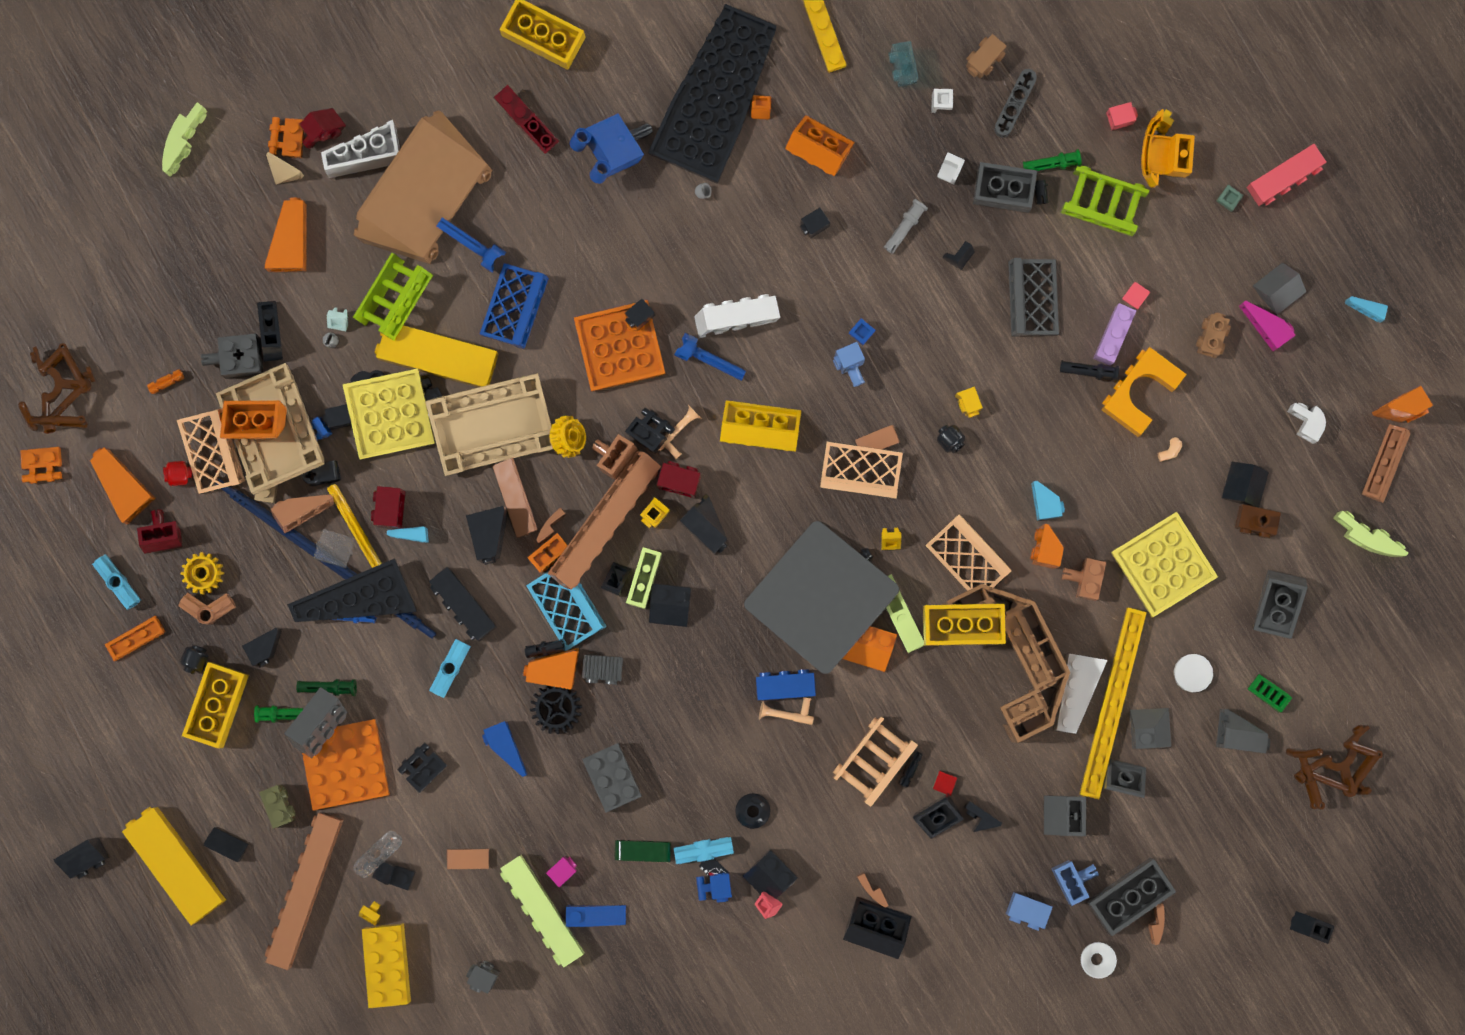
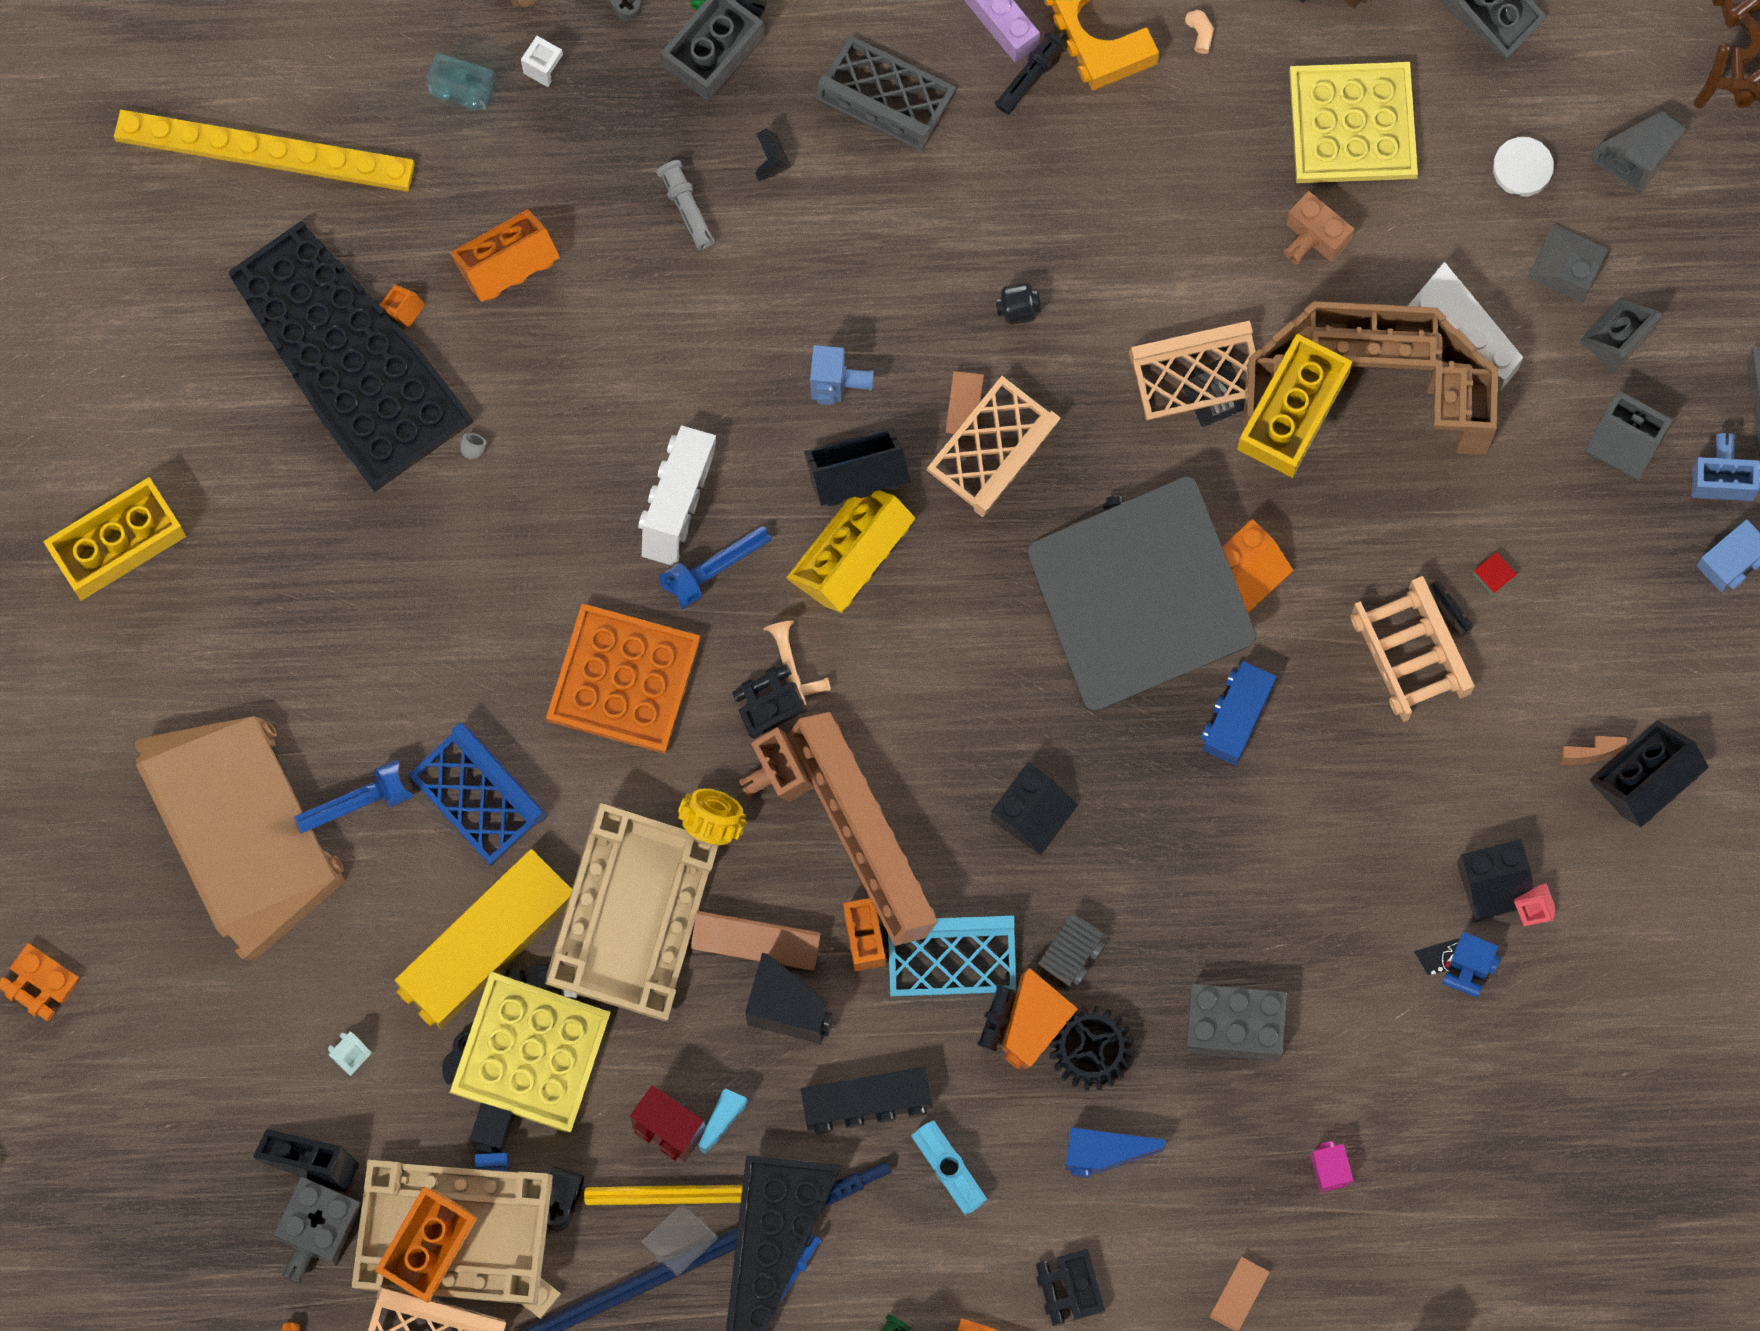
camera: 60 degrees left, 10 degrees down
(282, 171) = (83, 1013): tan slope -> none
(289, 240) = (192, 1058): orange slope -> none
(298, 510) = (593, 1262): nougat slope -> none
(321, 126) = (56, 918): dark red brick -> none
(333, 342) = (365, 1085): light grey hinge -> none
(363, 153) = (131, 879): white wedge -> none
(403, 305) = (391, 945): lime fence -> none
(525, 119) = (223, 632): dark red slope -> none
(542, 910) = (1373, 1227): yellowish green brick -> none
(547, 531) = (828, 919): nougat slope -> none
(595, 915) = (1420, 1156): blue slope -> none
(611, 144) = (335, 528): blue piece -> none
(616, 579) = (955, 862): black slope -> none
(639, 314) = (597, 622): black brick -> none
(642, 851) = (1364, 1038): dark green beam -> none
(644, 578) = (976, 822): yellowish green brick -> none
(661, 508) = (896, 773): yellow window -> none
(679, 480) = (864, 695): dark red brick -> none
(703, 850) = (1409, 952): medium azure piece -> none
(705, 525) = (950, 697): black slope -> none
(752, 800) = (1388, 871): black piece -> none
(802, 718) = (1258, 759): light nougat piece -> none
(805, 403) = (857, 467): none -> black piece
(814, 223) = (609, 320): black brick -> none
(862, 331) = (799, 339): blue tile -> none
(890, 540) = (1113, 460): yellow tile -> none
(904, 623) = (1244, 502): yellowish green slope -> none
(938, 816) = (1536, 605): black slope -> none
(950, 168) = (642, 101): white panel -> none
(965, 573) = (1217, 389): none -> black sticker
(969, 402) = (982, 252): yellow window -> none
(985, 820) = (1575, 545): black slope -> none
(1046, 502) = (1179, 227): medium azure slope -> none
(1048, 548) = (1244, 256): orange slope -> none
(1112, 703) = (1507, 292): yellow plate -> none
(1286, 697) = (1614, 69): green slope -> none

